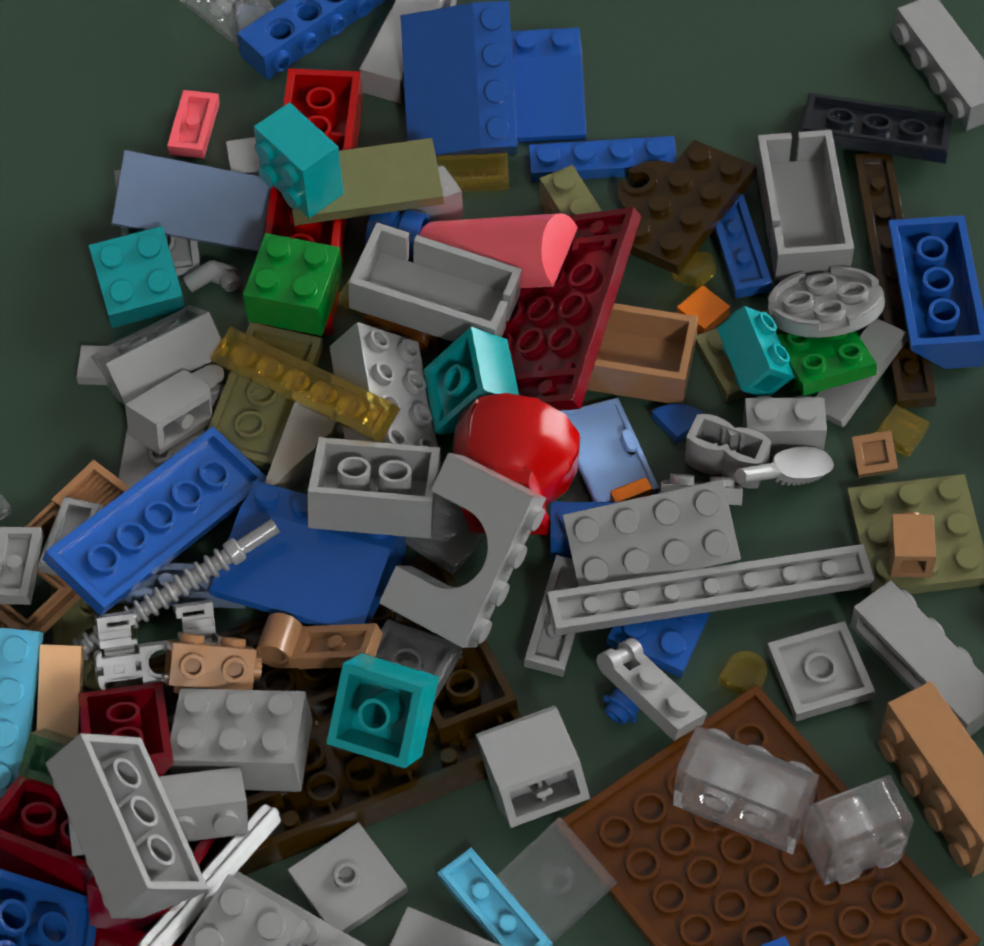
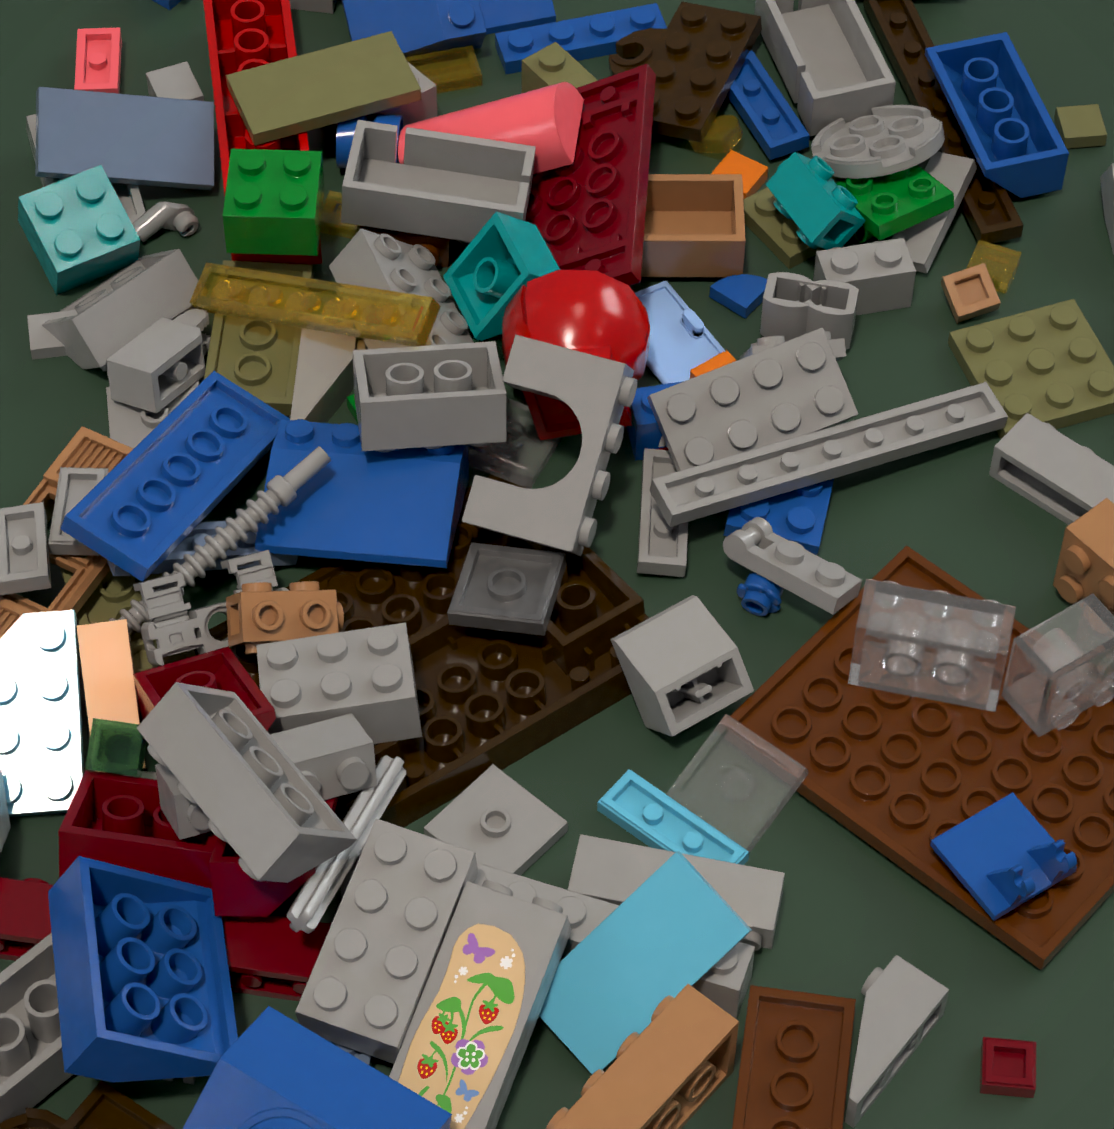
camera: 15 degrees left, 5 degrees down
(291, 645) = (401, 582): medium nougat plate -> none
(298, 160) = (251, 66): teal brick -> none
(382, 710) = (499, 629): teal brick -> none
(744, 672) = (885, 538): clear yellow tile -> none
(790, 466) = (884, 314): light grey piece -> none
(820, 671) = (971, 522): light grey plate -> none
(912, 545) = (1041, 373): medium nougat brick -> none

